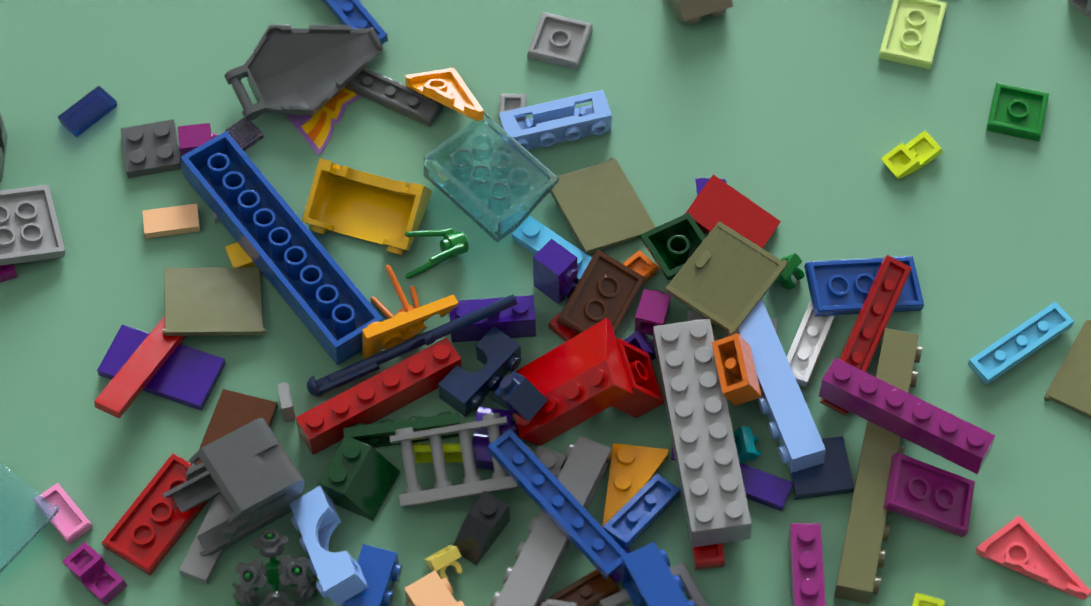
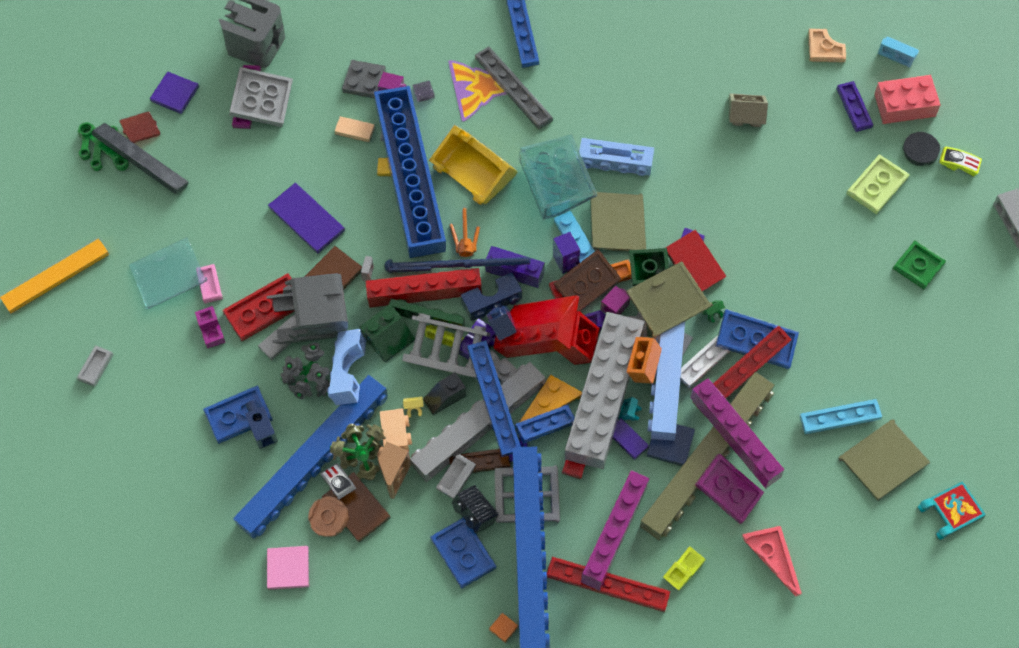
camera: 25 degrees right, 5 degrees up
(87, 111) = (338, 41): clear blue tile -> none
(137, 371) = (304, 207): tile -> none
(213, 301) = (354, 189): olive piece -> none
(302, 67) = (476, 62): dark grey windscreen -> none
(402, 326) = (457, 250): light orange wing -> none
(448, 89) = (557, 109): light orange wing -> none
(451, 246) = (512, 211): green plant -> none
(511, 102) = (596, 133): light grey tile -> none
(560, 41) = (646, 105): light grey tile -> none
(912, 156) = (833, 267): neon yellow slope -> none

